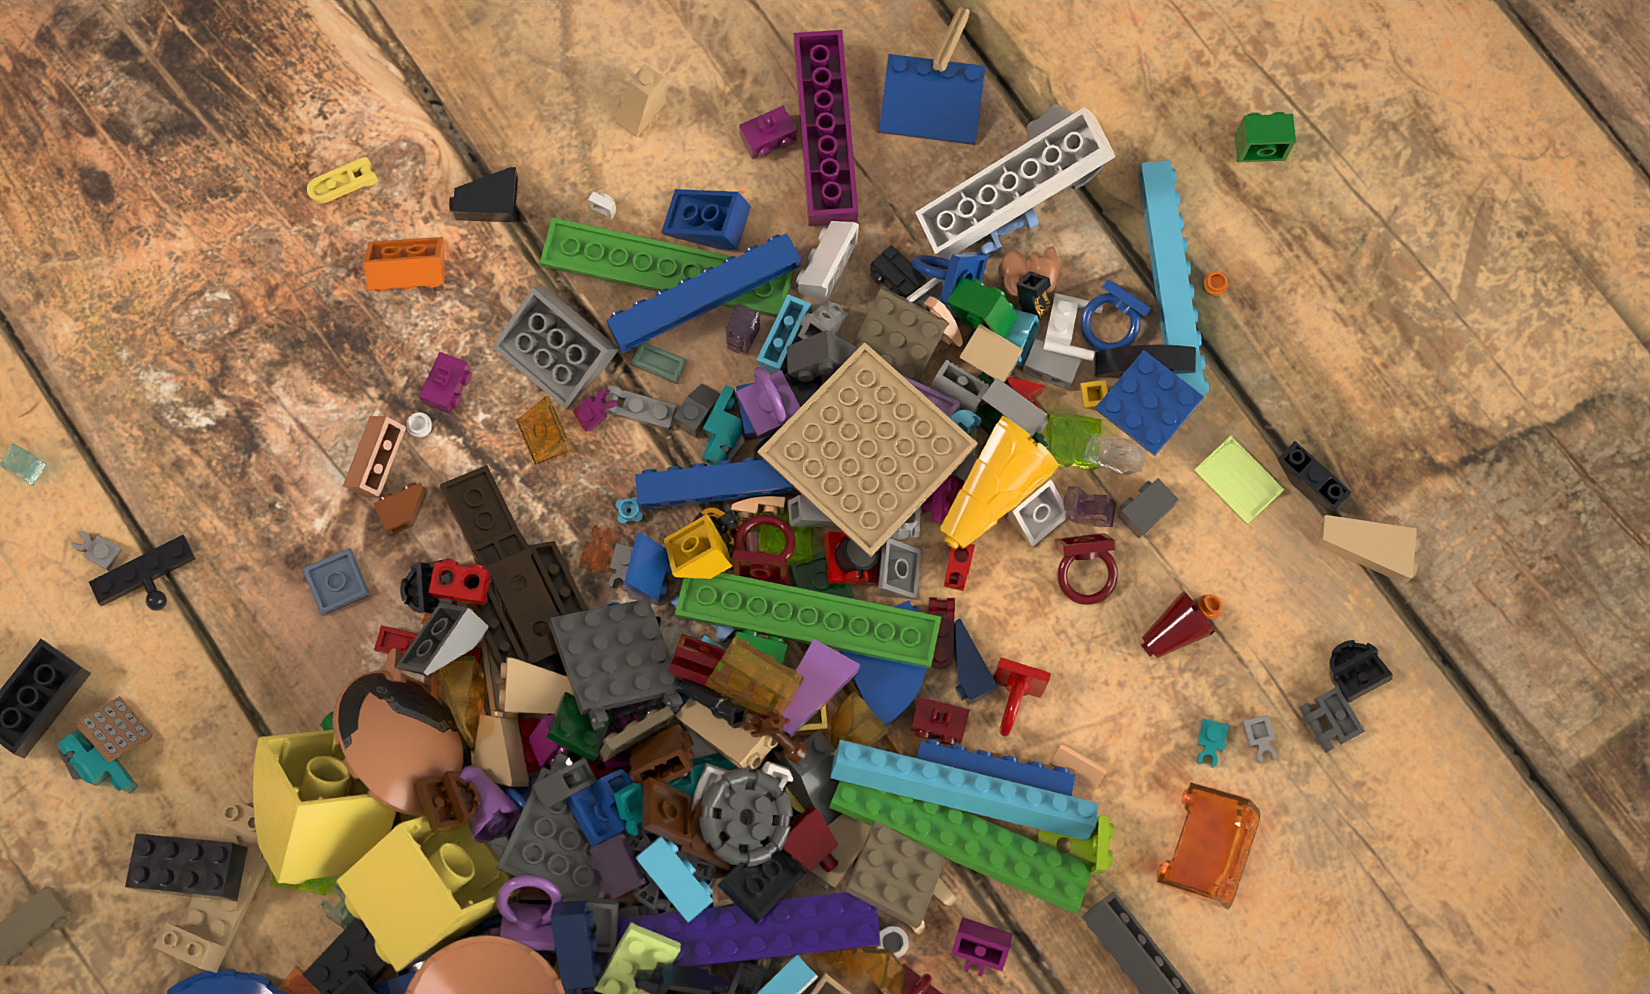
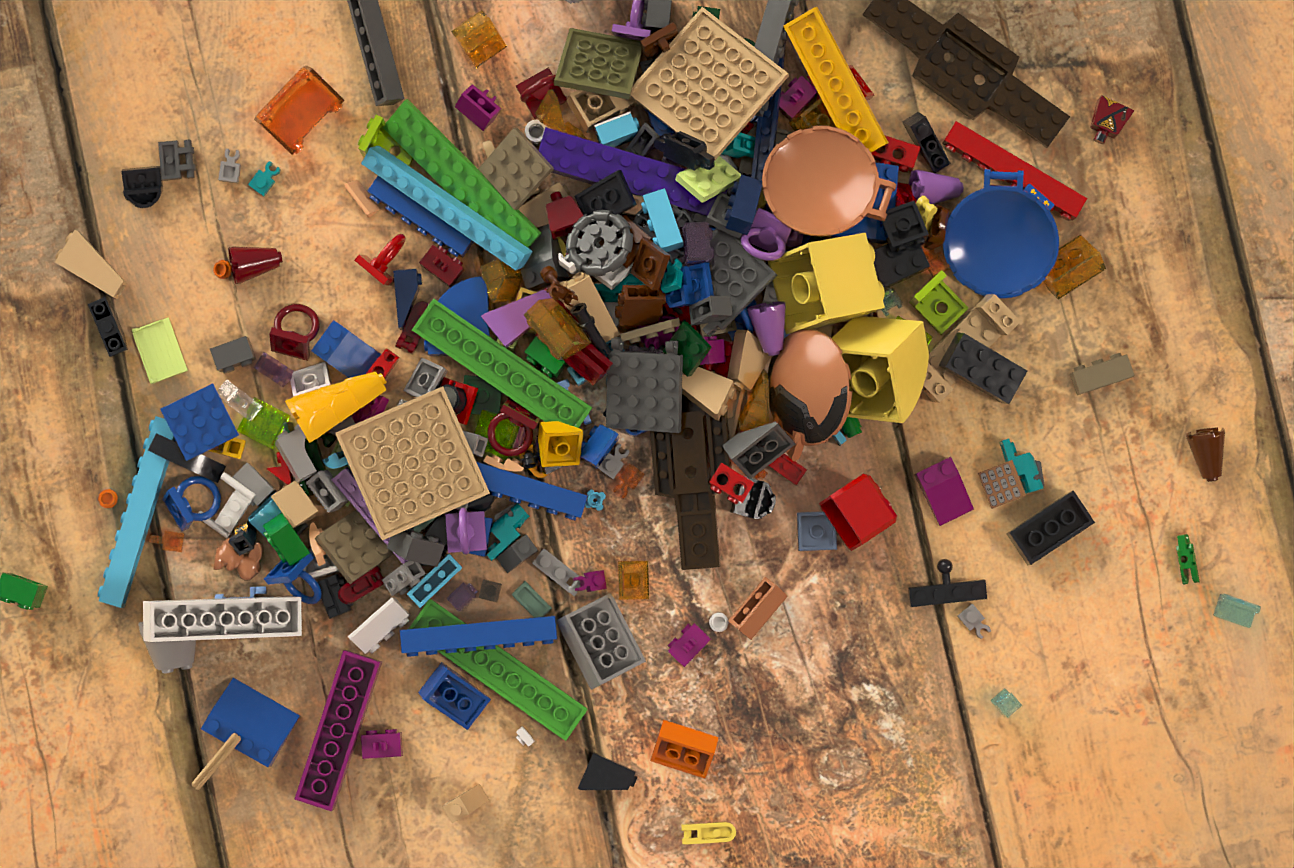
camera: 155 degrees left, 10 degrees up
(189, 695) = (944, 491): none -> magenta slope
(284, 616) = (858, 511): none -> red plate
(291, 934) = (938, 292): none -> lime bracket
(401, 509) = (754, 562): dark orange slope -> none
(448, 801) = (792, 329): reddish brown slope -> none
(713, 353) = (490, 590): none -> clear smoke plate
(878, 277) = (364, 585): none -> dark red plate
(1011, 565) = (345, 351): none -> blue slope
(1119, 263) = (171, 541): none -> clear orange plate

